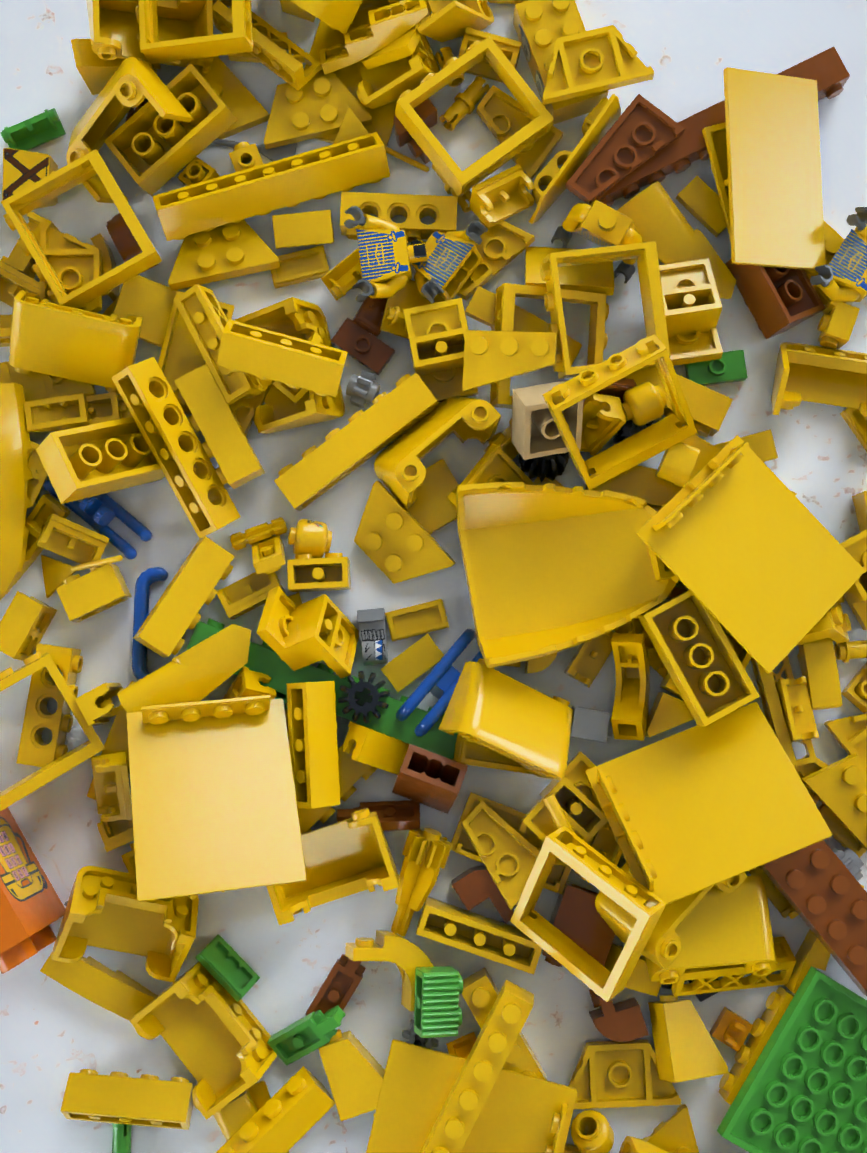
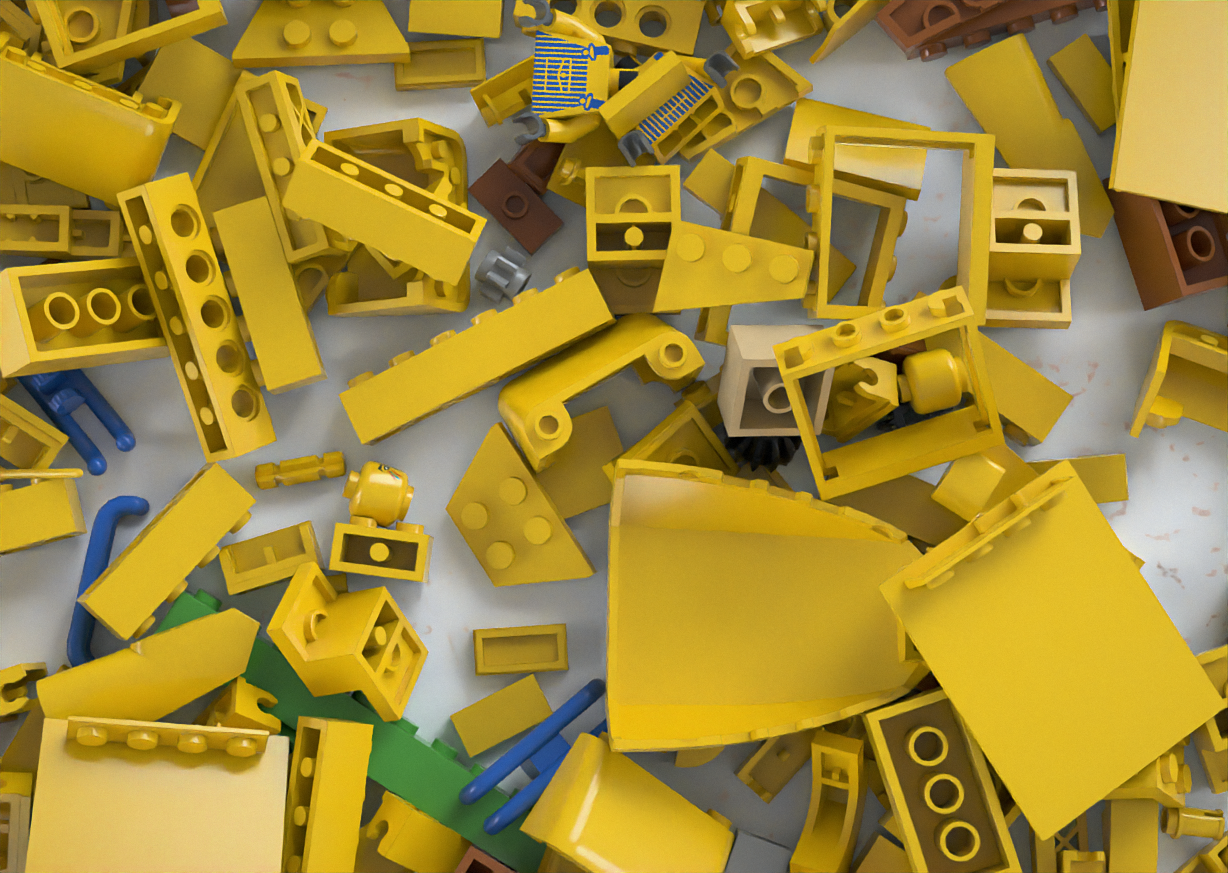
camera: 10 degrees right, 0 degrees up
(268, 555) = (308, 508): yellow plate -> none
(360, 687) = (410, 742): black gear -> none
(373, 636) = (447, 663): light grey leg -> none
(432, 257) = (644, 94): none -> yellow tile
(602, 226) = (922, 93): yellow torso -> none
(724, 370) = (1078, 345): bright green plate -> none

